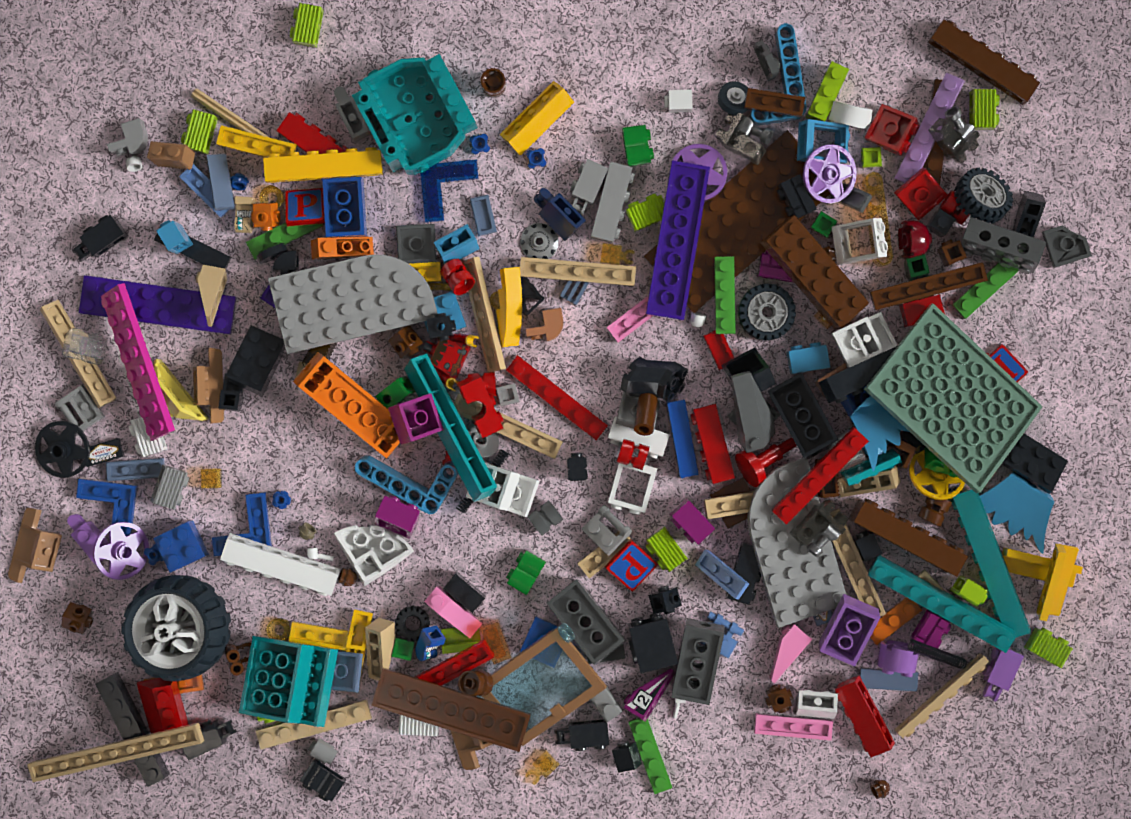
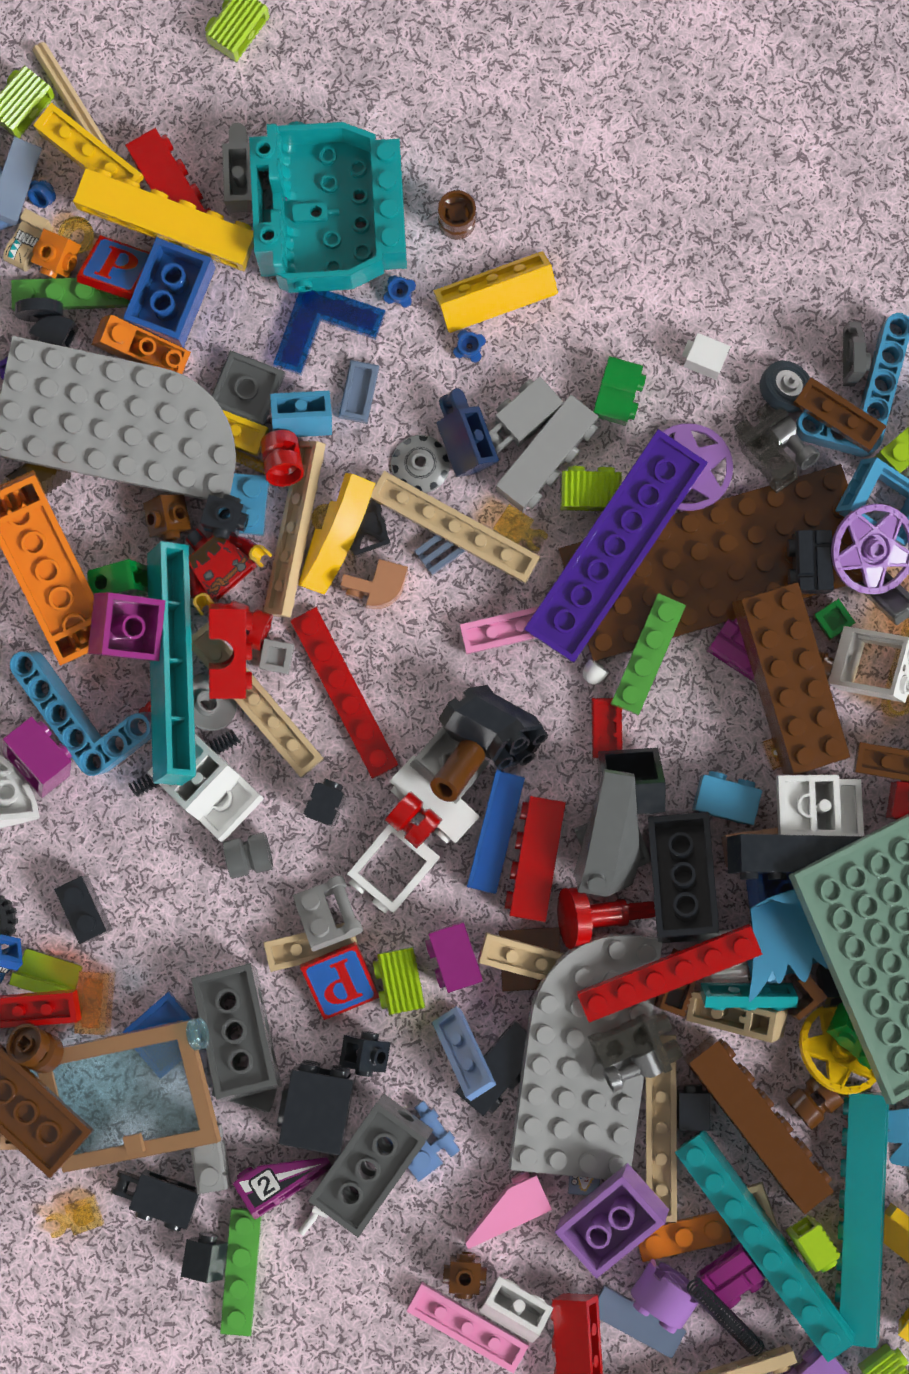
camera: 25 degrees right, 5 degrees down
(453, 611) = (53, 930): bright pink slope -> none
(526, 571) = (184, 921): green brick -> none
(766, 327) = (721, 703): wheel -> none

